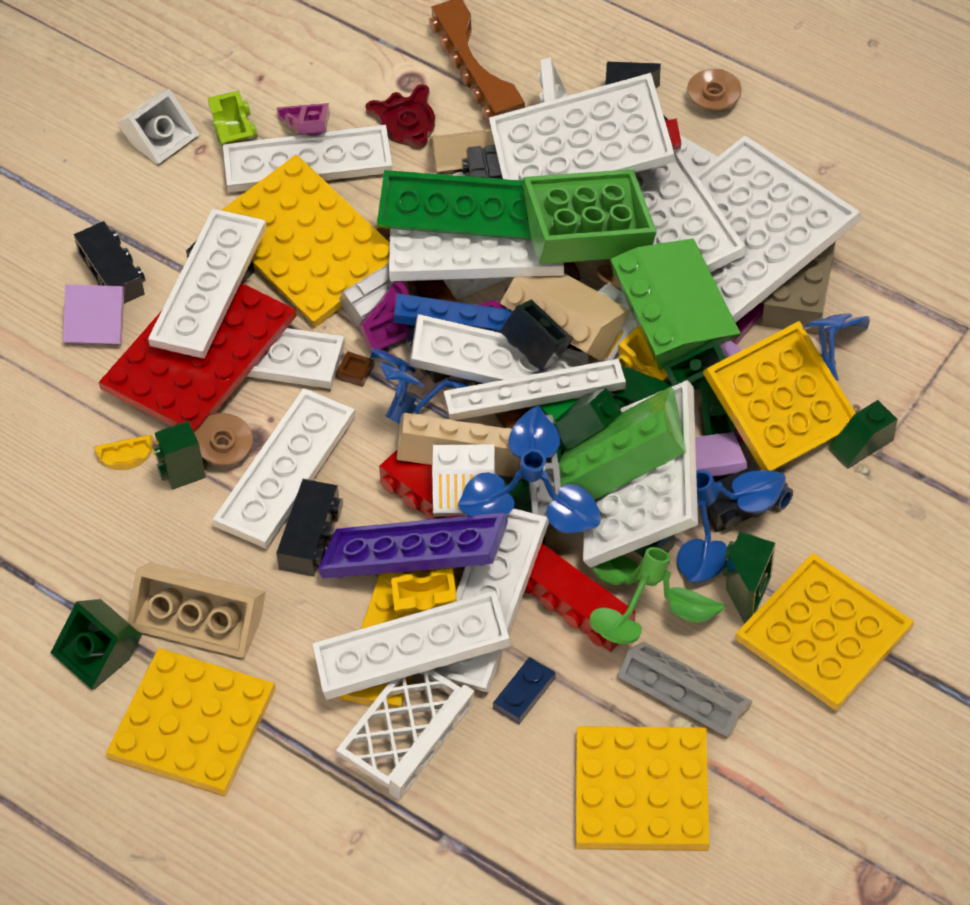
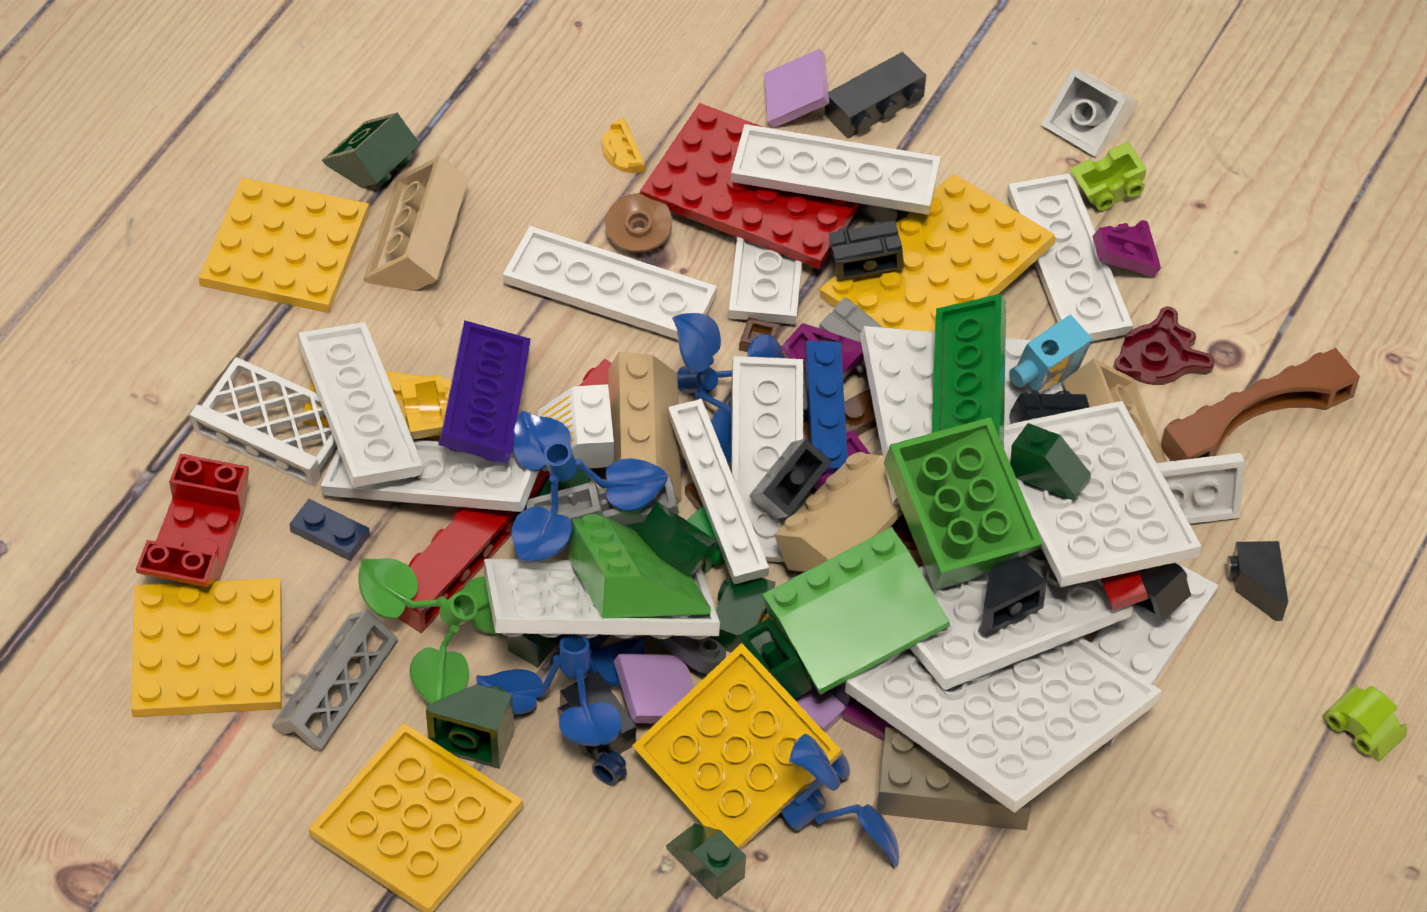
camera: 80 degrees right, 0 degrees up
(178, 455) = (602, 178): dark green brick -> none
(293, 274) = (866, 250): none -> black brick
(309, 527) = (529, 310): black brick -> none
(427, 153) = (1052, 356): none -> medium azure torso
(520, 792) = (198, 523): none -> red slope
(561, 153) = (1048, 462): none -> dark green slope
(669, 204) = (1011, 594): none -> black slope
(714, 89) = (1268, 661): medium nougat dish -> none
(751, 44) = (1369, 718): none -> lime cylinder

